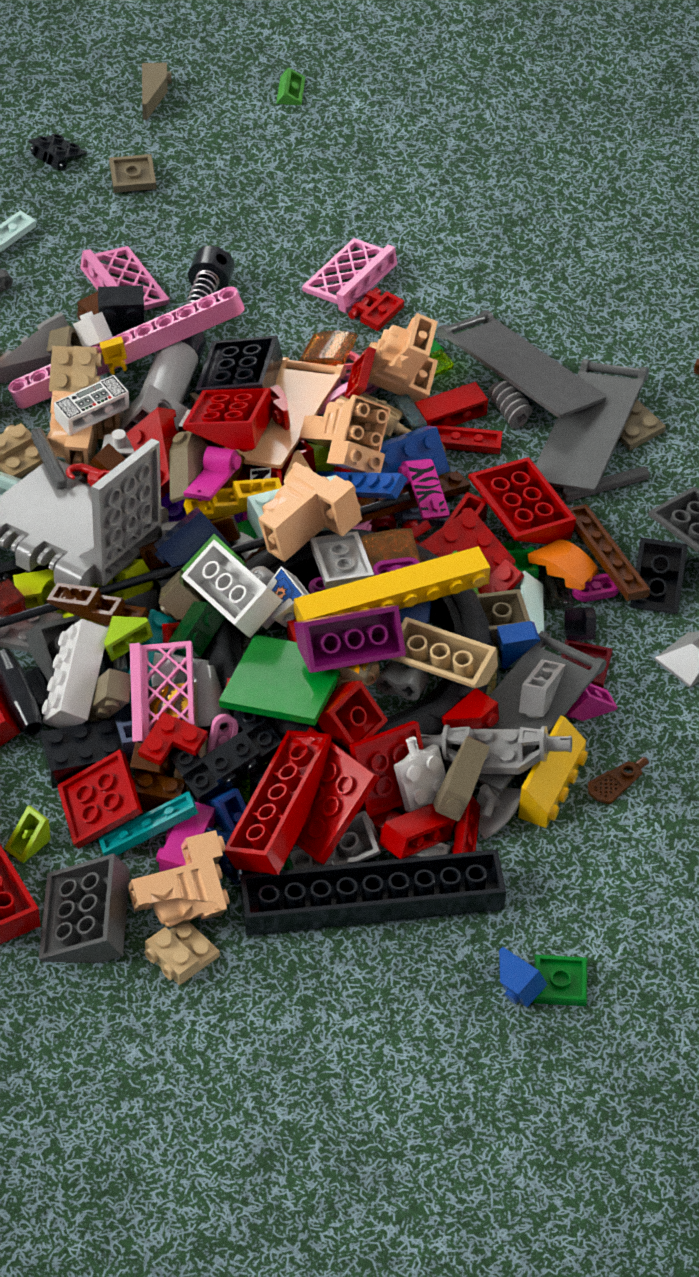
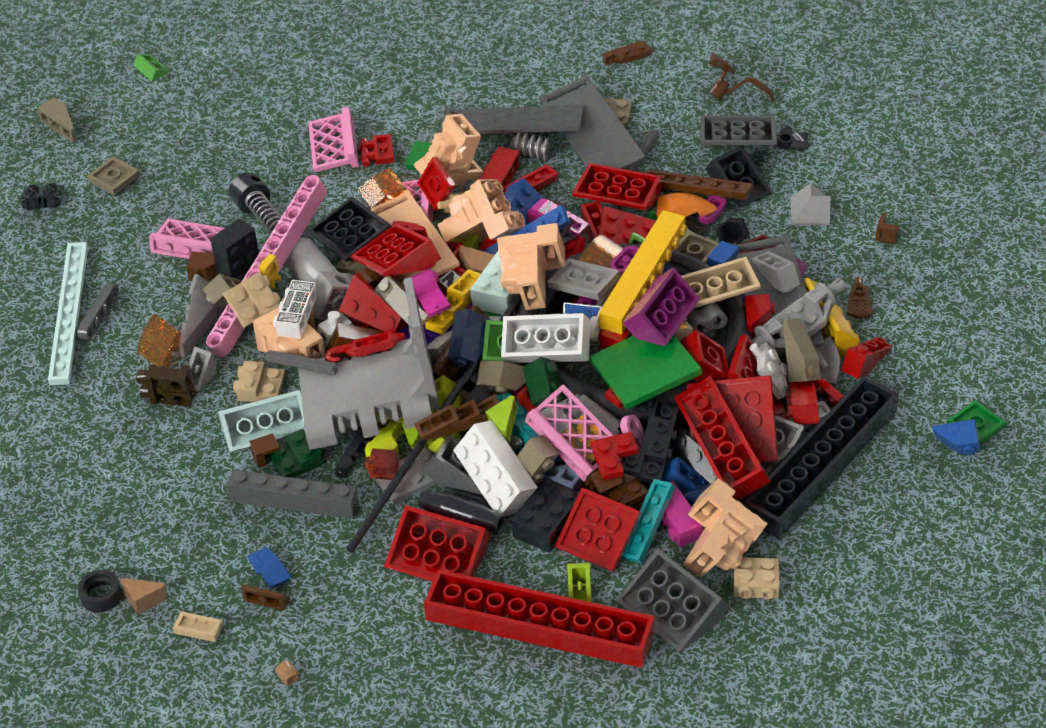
camera: 40 degrees left, 5 degrees down
(92, 329) = (233, 268): white brick -> none
(538, 835) = (864, 357): none -> red slope

